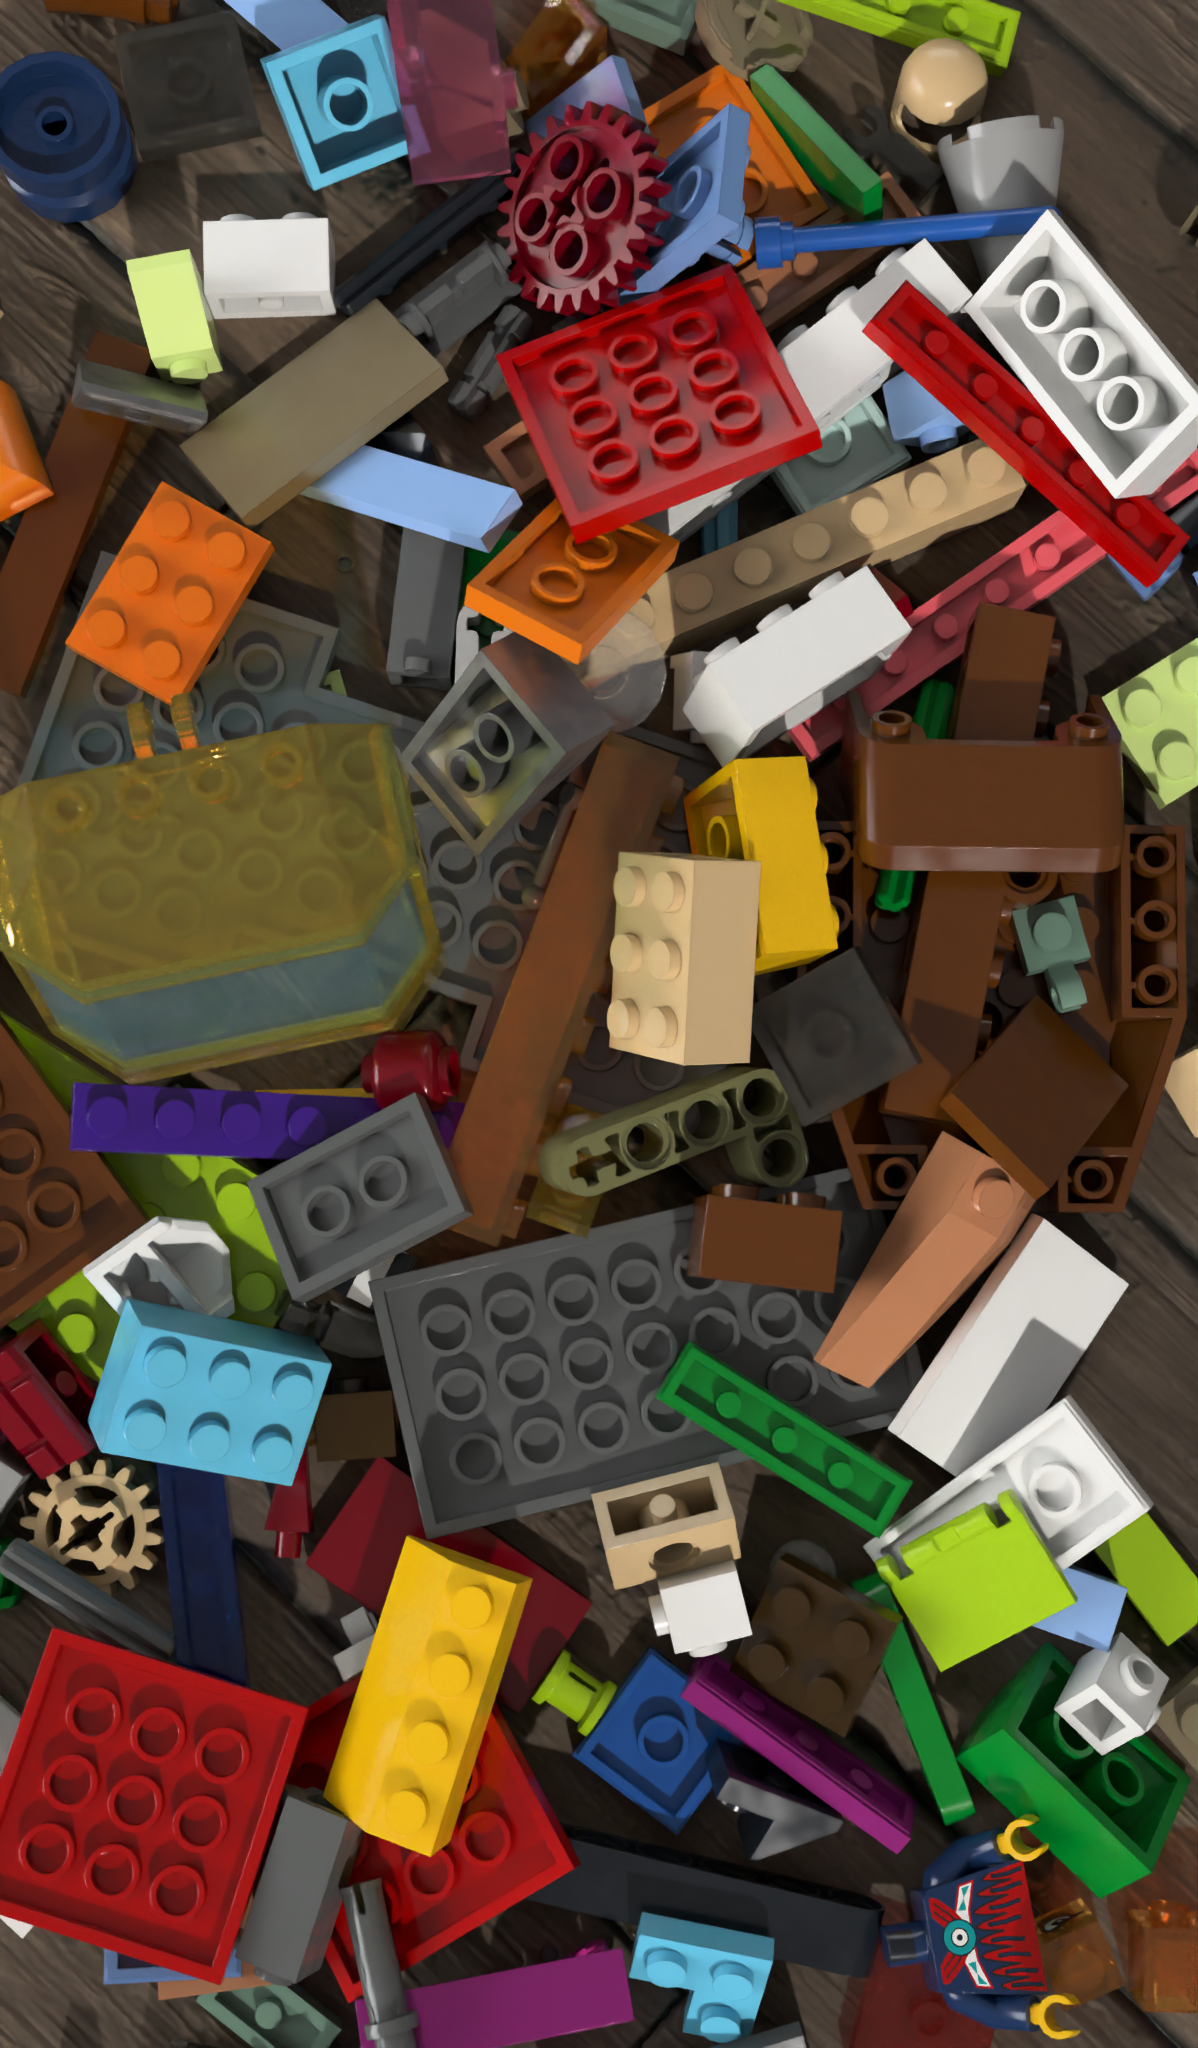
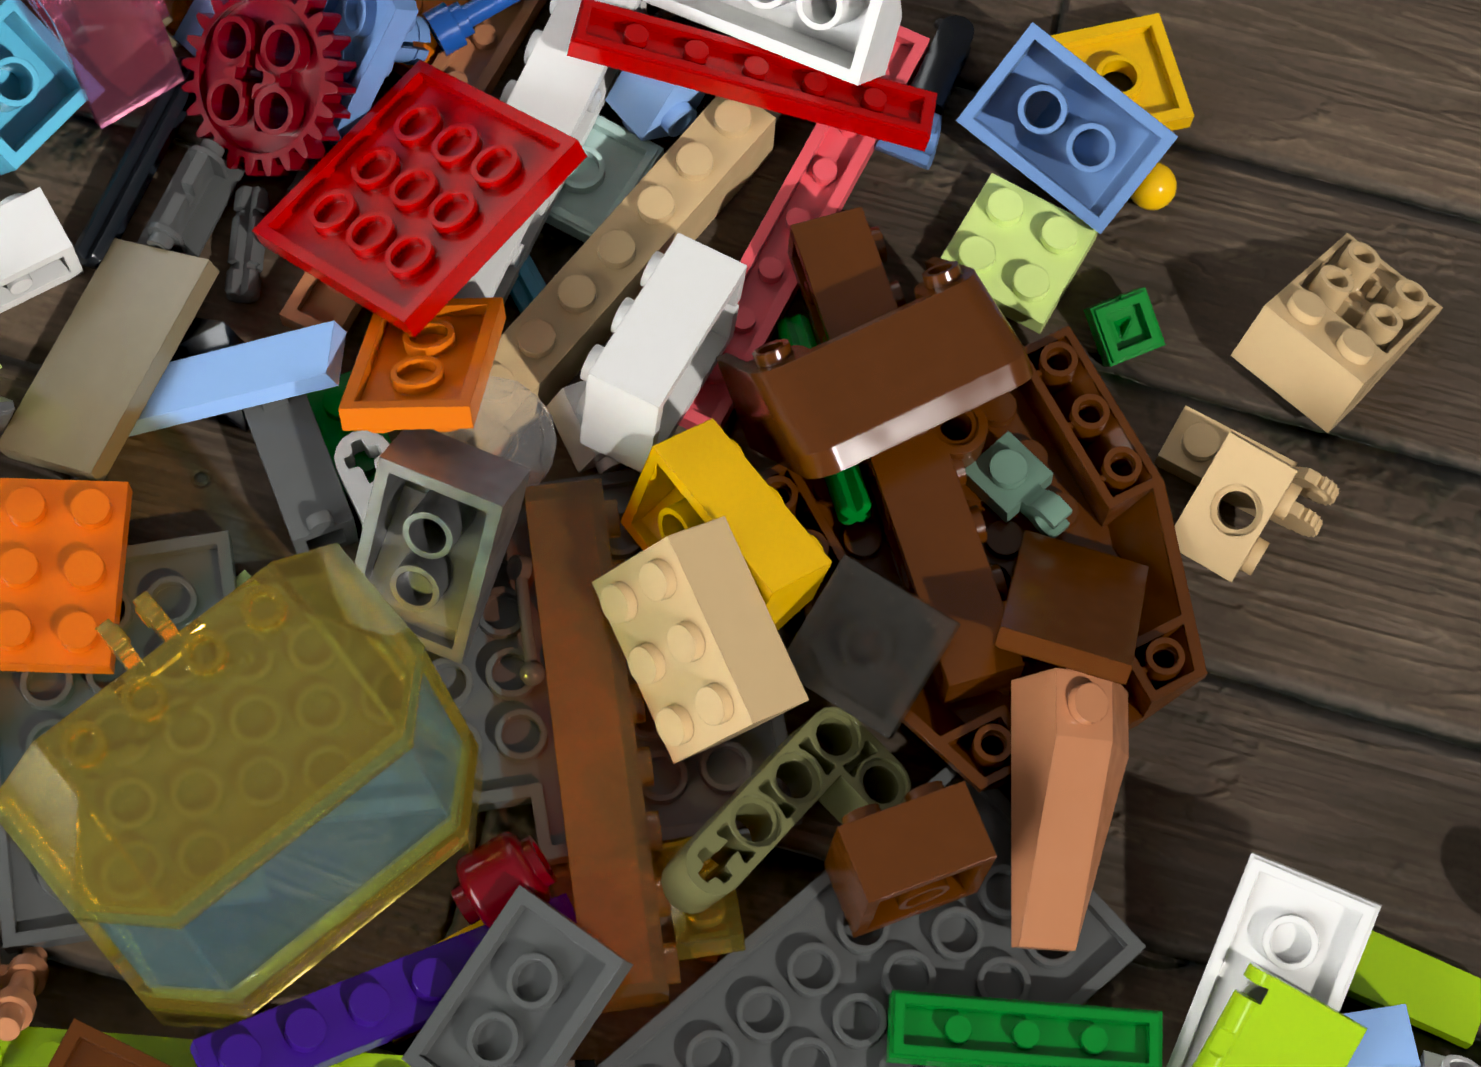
camera: 30 degrees left, 15 degrees down
(1009, 1348) = (1177, 851): white tile -> none

